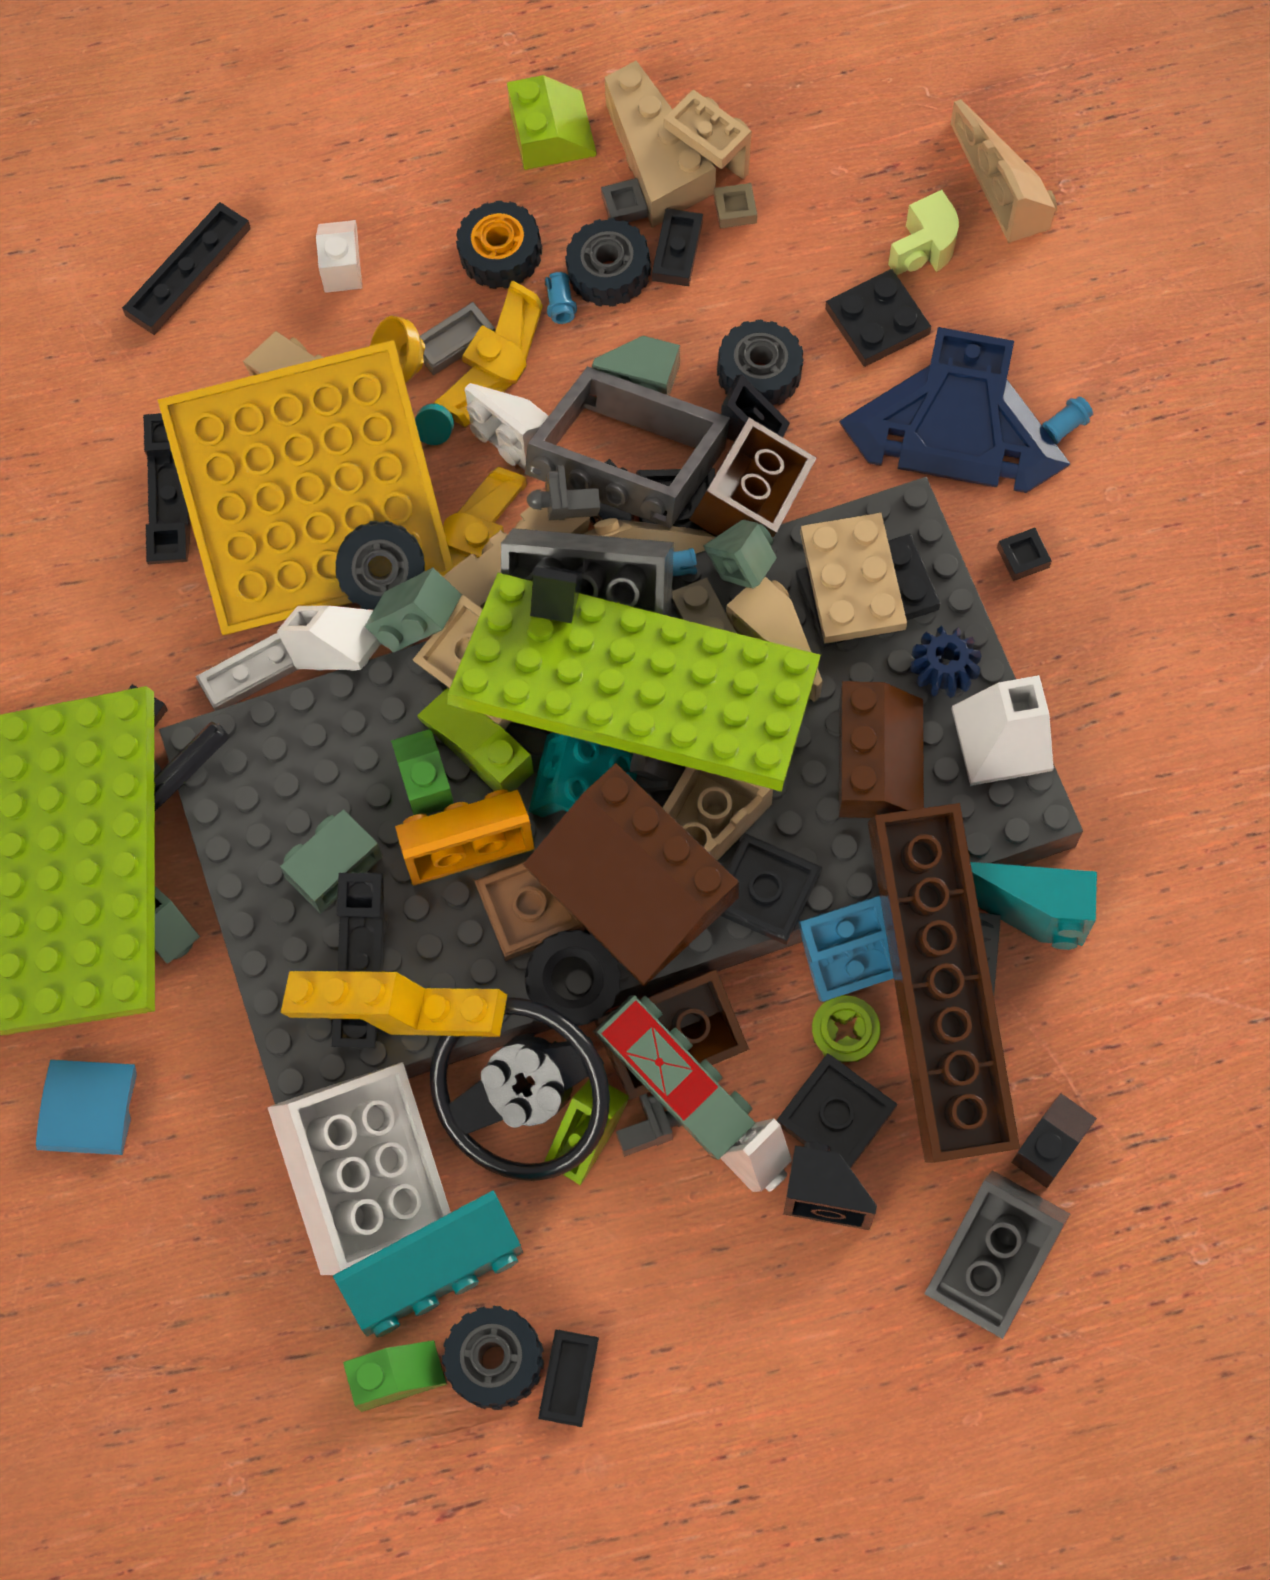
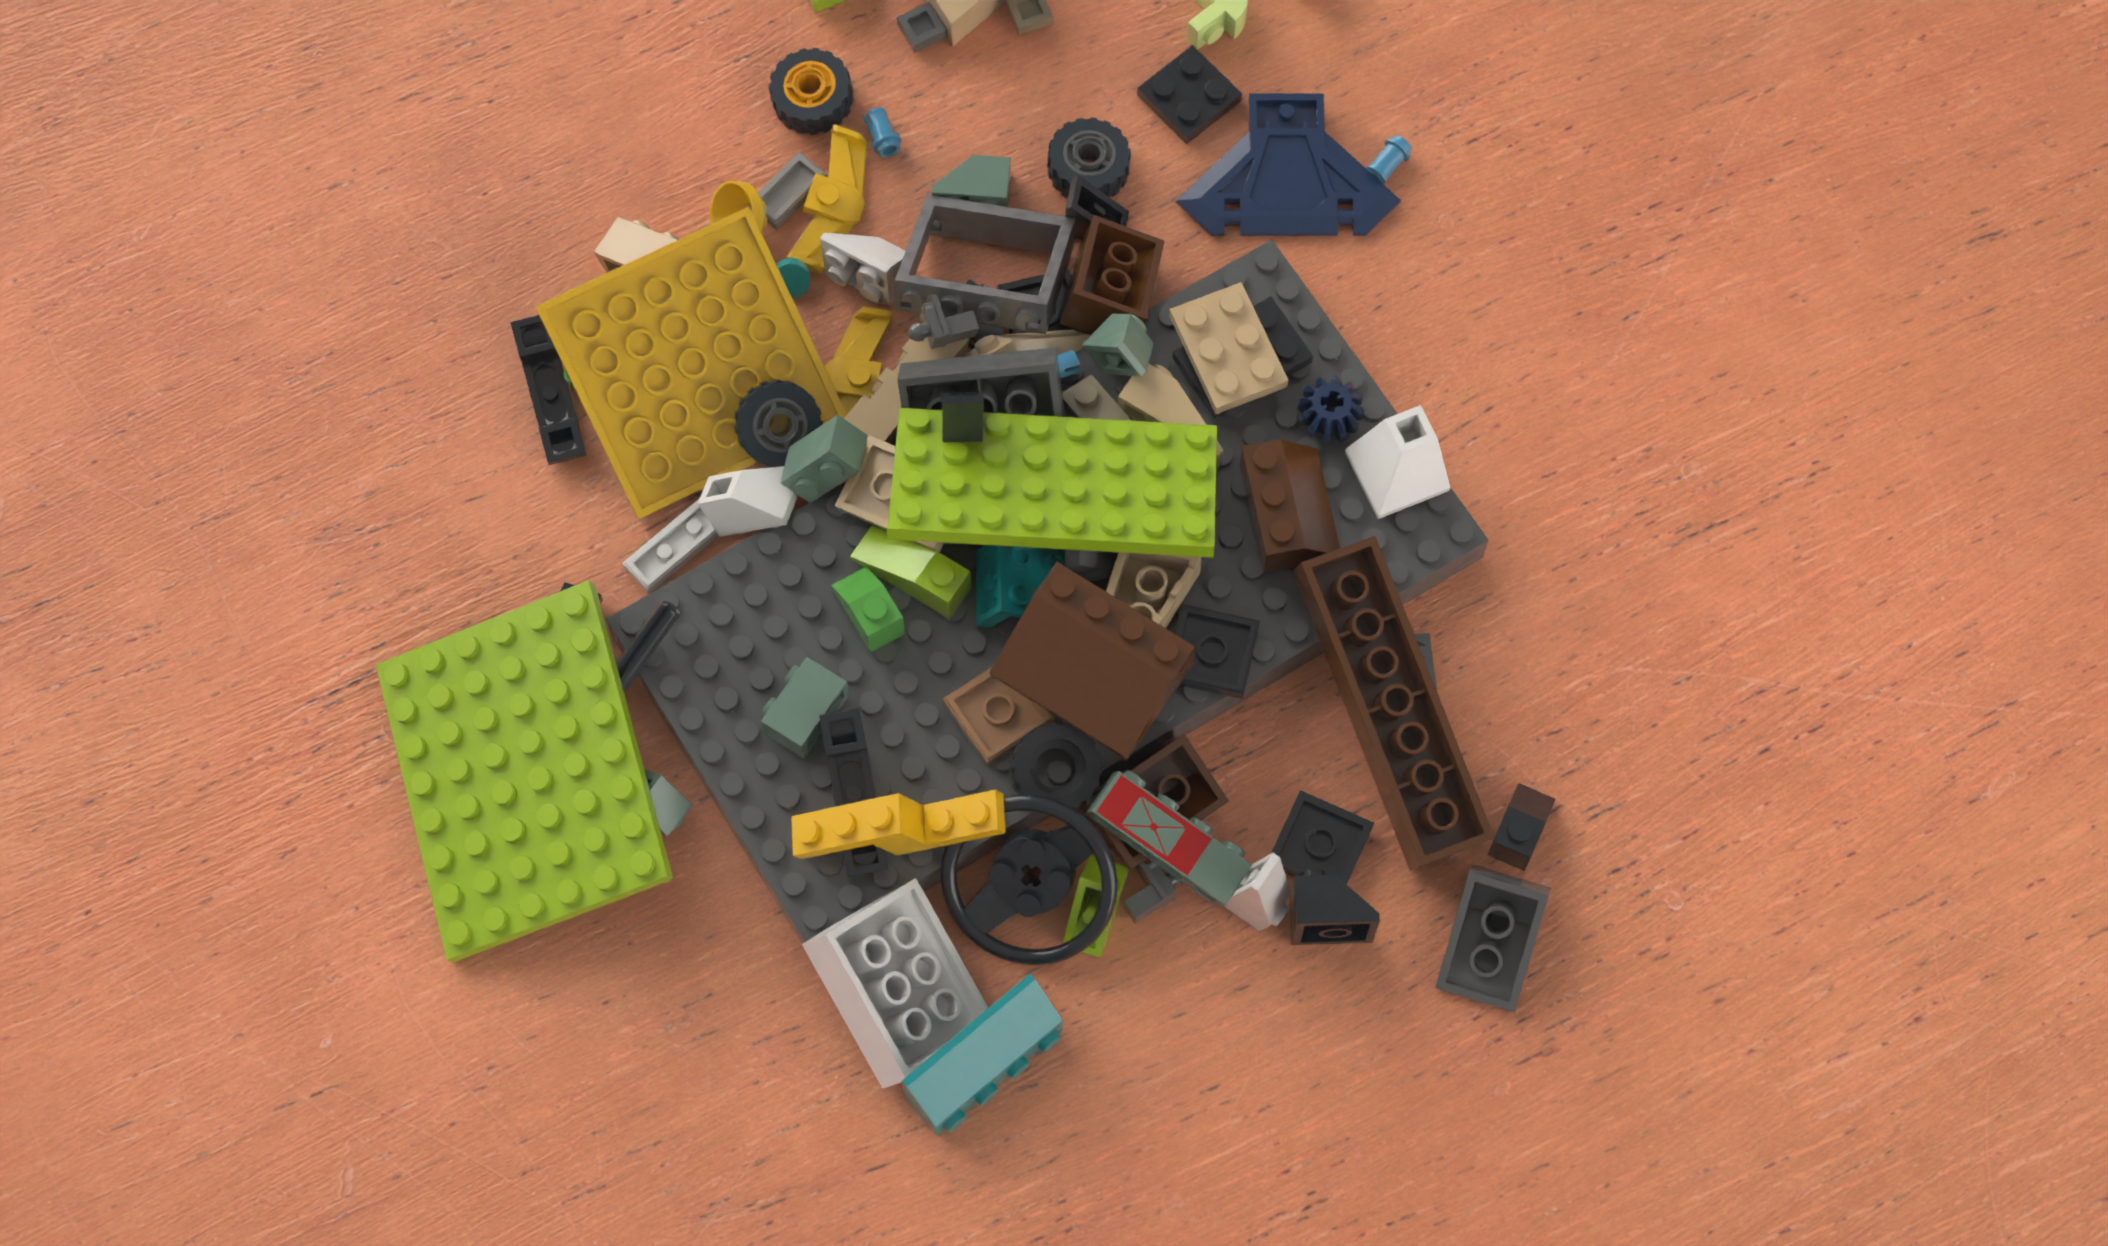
camera: 15 degrees left, 0 degrees up
(85, 1107) = (623, 984): dark azure slope -> none
(186, 268) = (511, 171): black plate -> none
(339, 256) = (658, 130): white slope -> none
(394, 1374) = (972, 1162): bright green slope -> none
(465, 836) = (925, 658): light orange slope -> none
(468, 1345) = (1052, 1102): black wheel -> none
(568, 1378) = (1132, 1131): black tile -> none
(606, 242) = (917, 69): black wheel -> none
(677, 247) = (983, 62): black plate -> none
(843, 1010) = (1304, 749): lime gear -> none
(847, 948) = (1297, 691): dark azure slope -> none
(1024, 554) = (1377, 294): black plate -> none
(1039, 901) = (1464, 612): teal slope -> none

